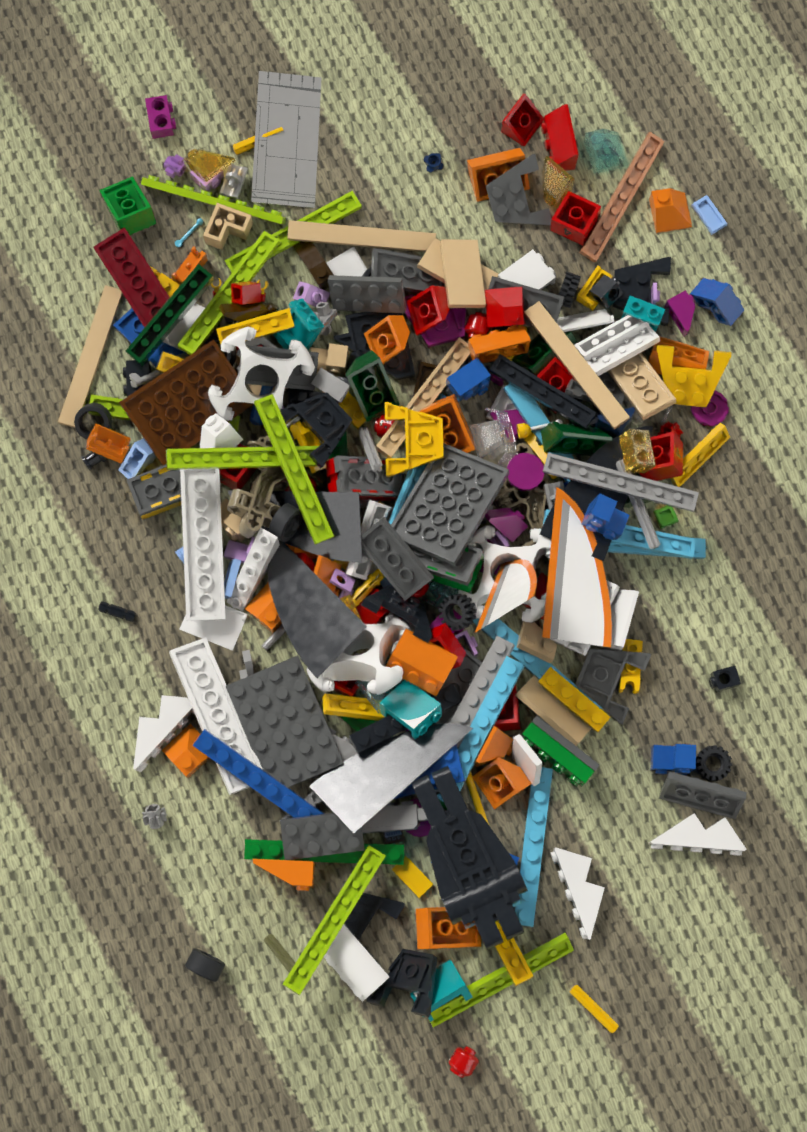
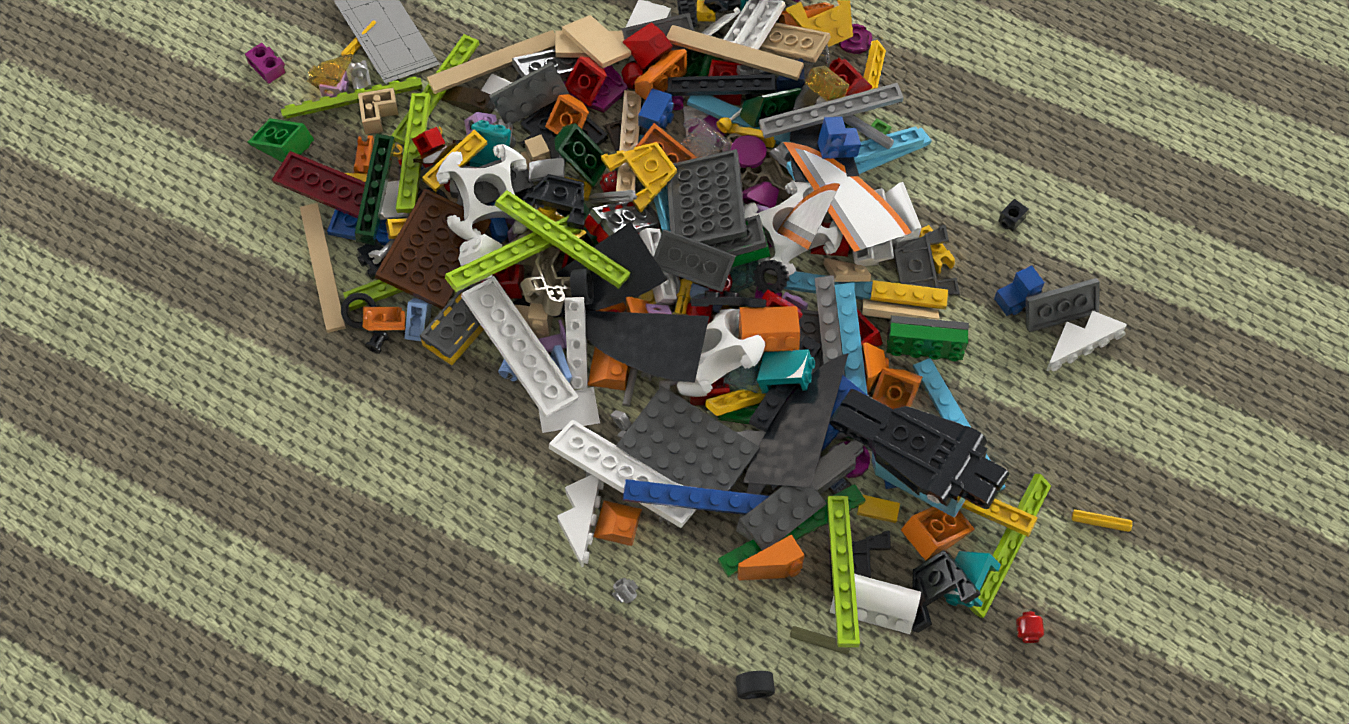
camera: 30 degrees left, 15 degrees down
(117, 611) = (478, 448): black axle -> none
(174, 166) = (302, 90): medium lavender gear -> none
(178, 243) = (342, 146): medium azure hinge -> none
(526, 759) = (907, 356): white tile -> none
(584, 895) = (1026, 436): white slope -> none
(724, 759) = (1049, 270): black tyre -> none

